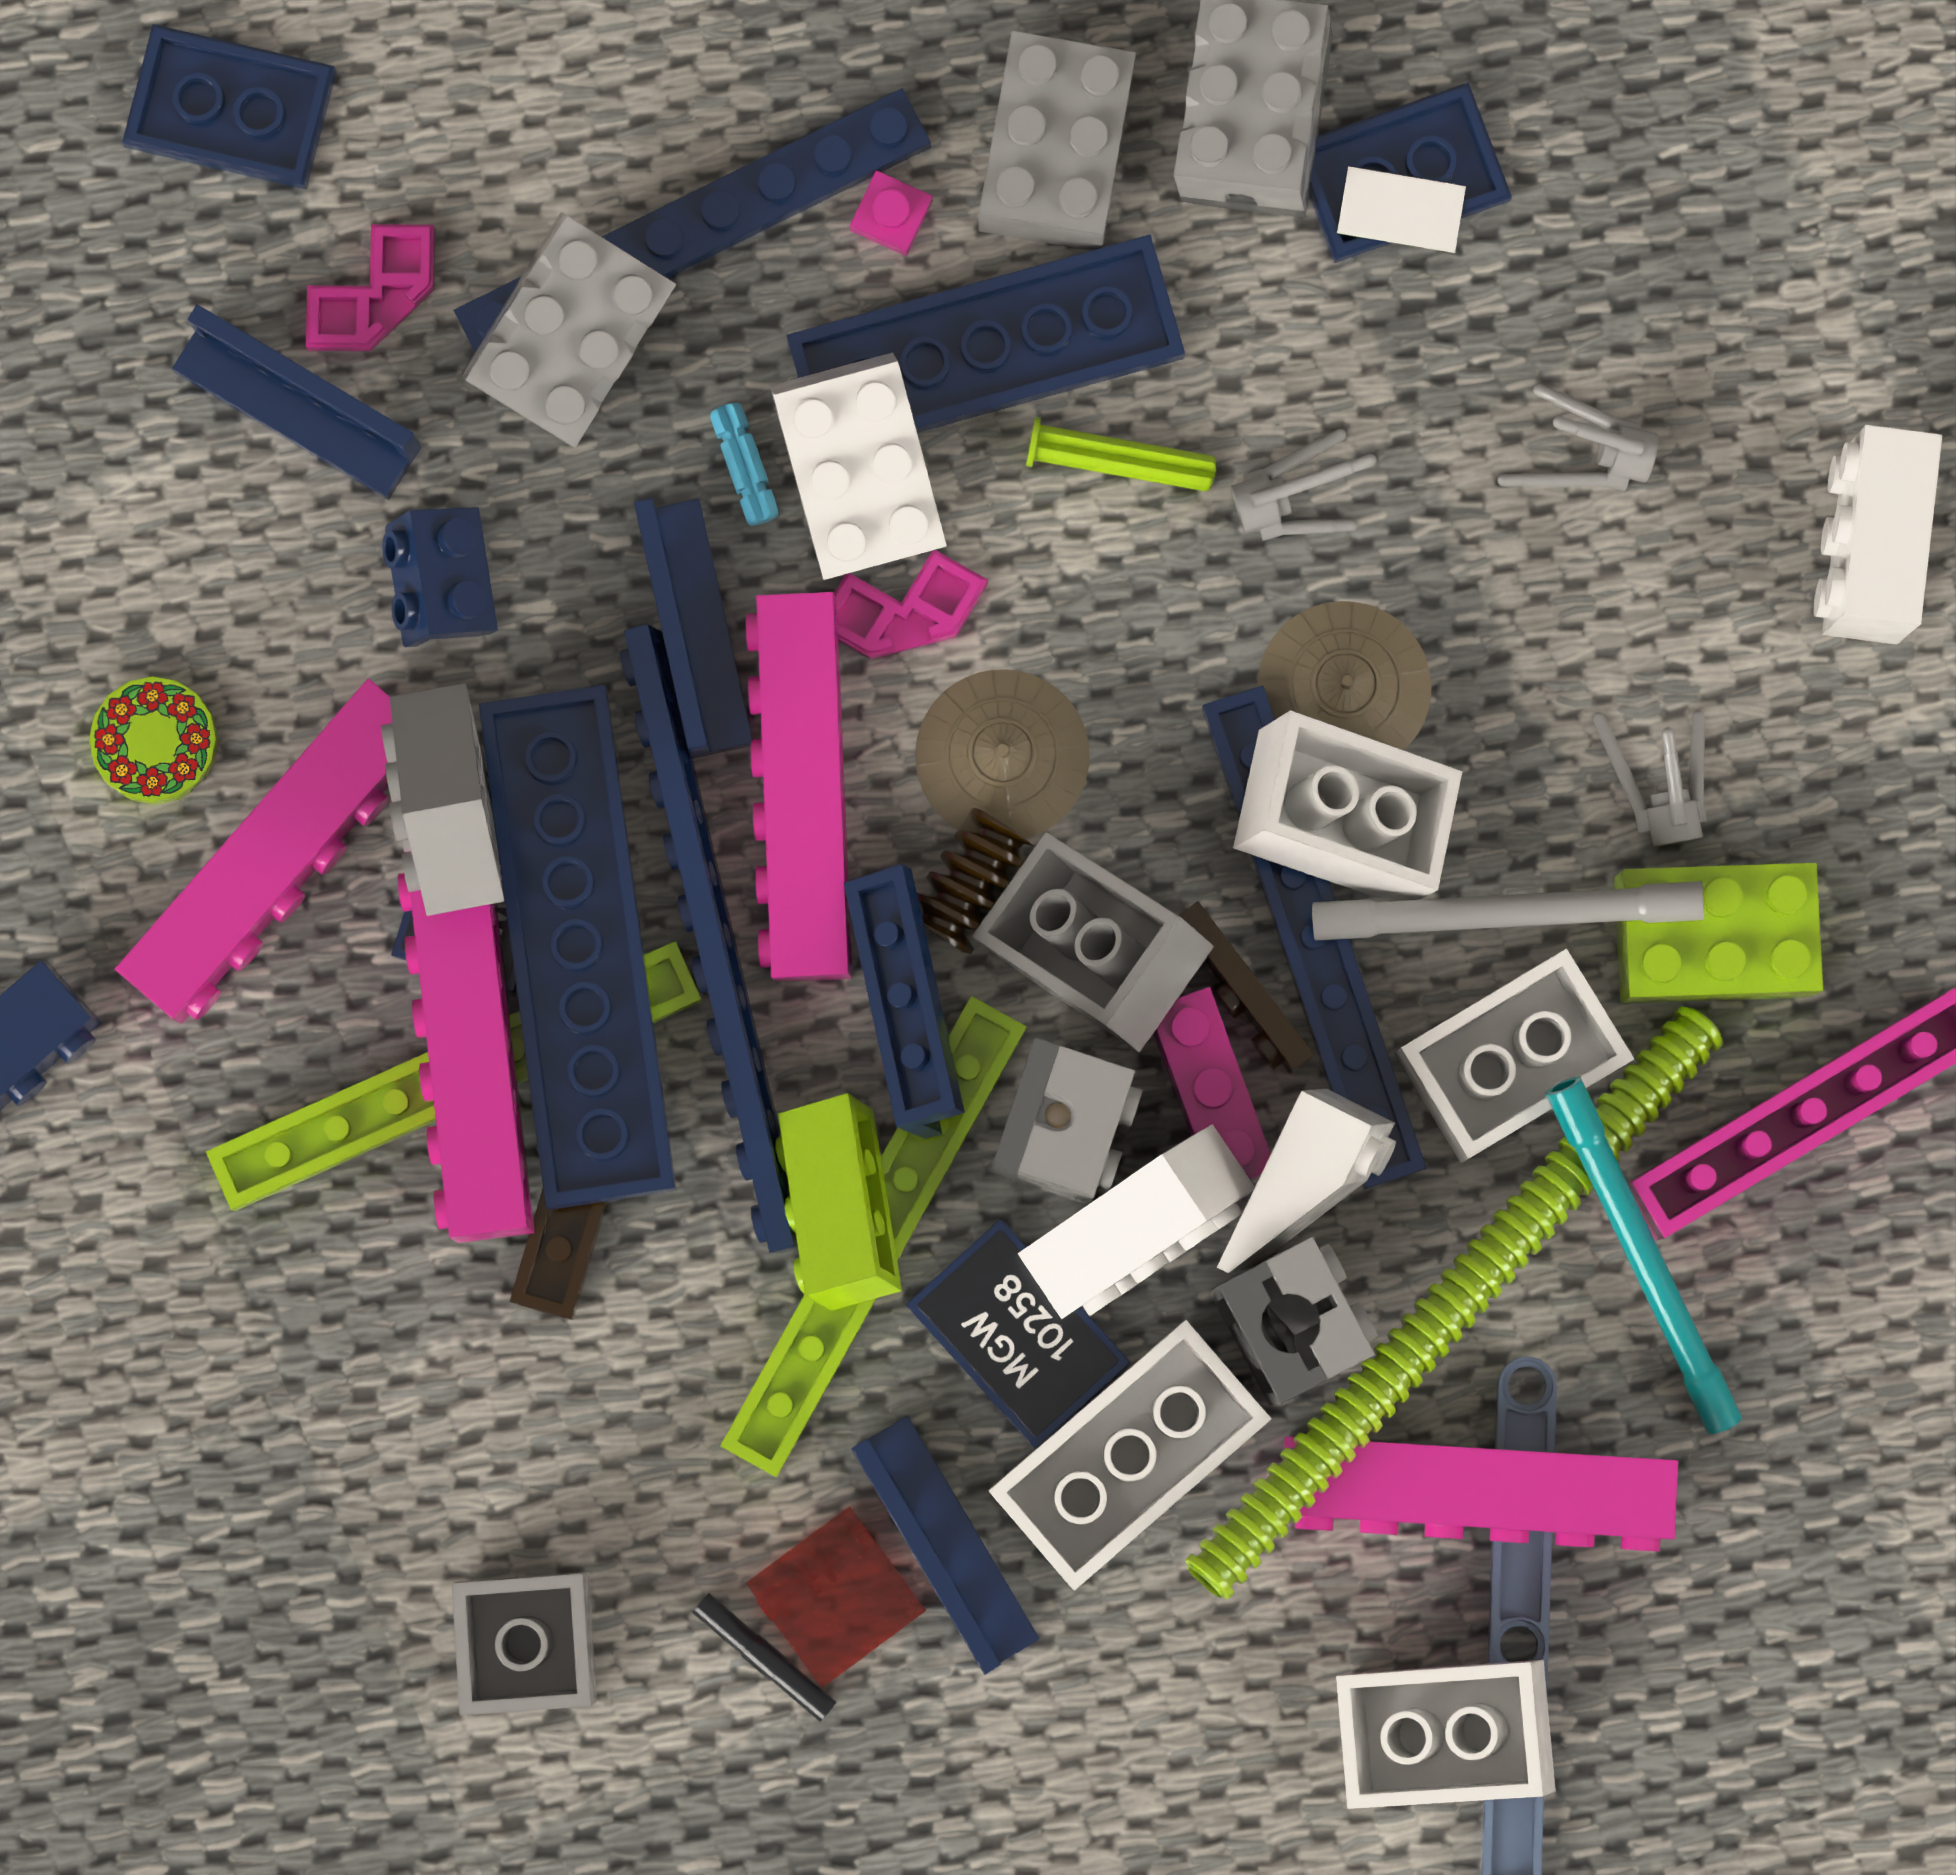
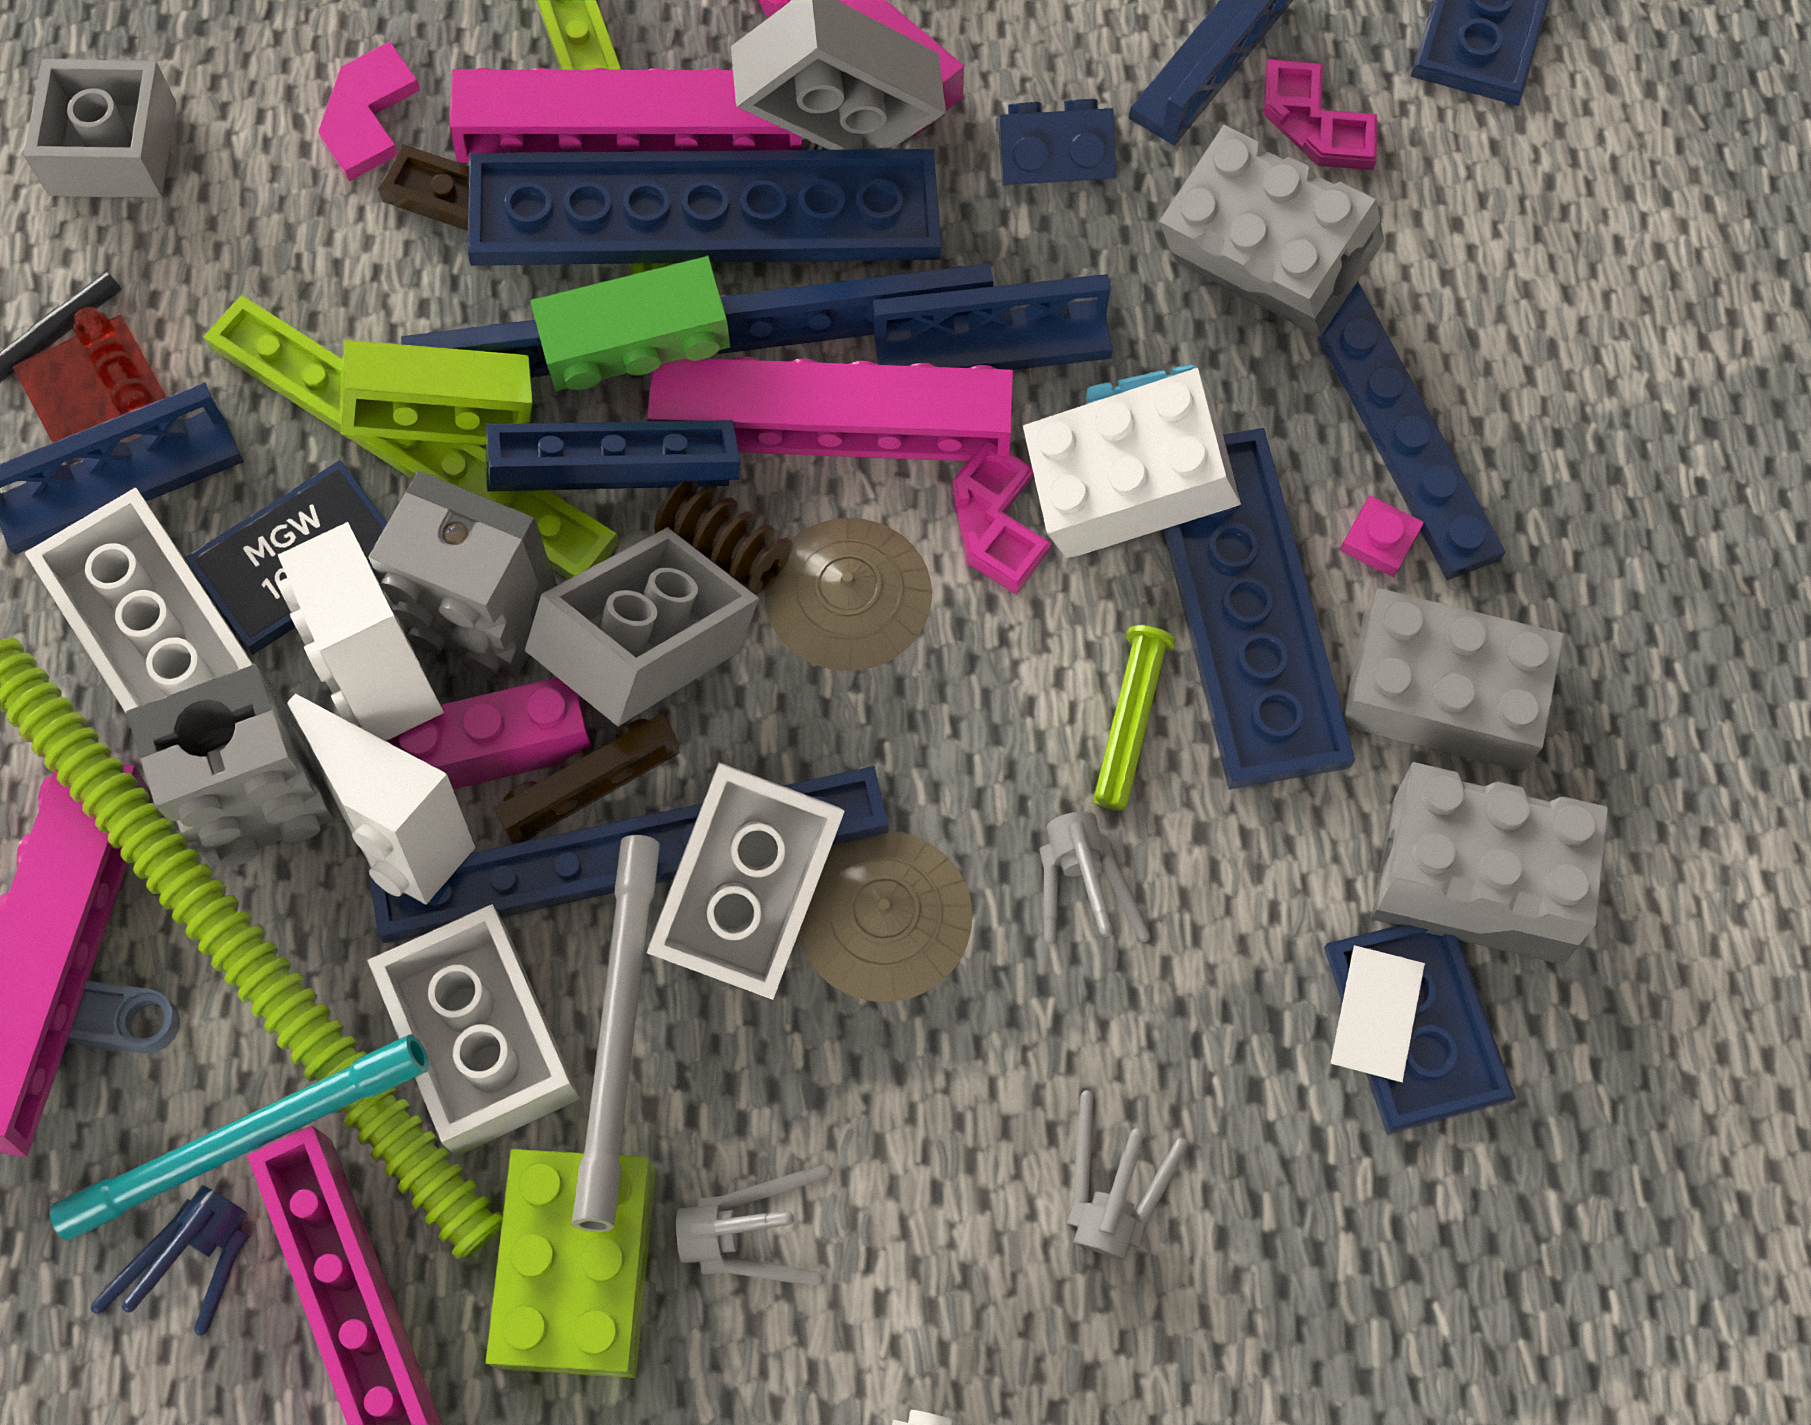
camera: 95 degrees right, 15 degrees down
(426, 1368) = (359, 92): none -> dark pink tile
(755, 994) = (631, 324): none -> bright green brick
(1716, 1284) = (203, 1225): none -> dark blue plant

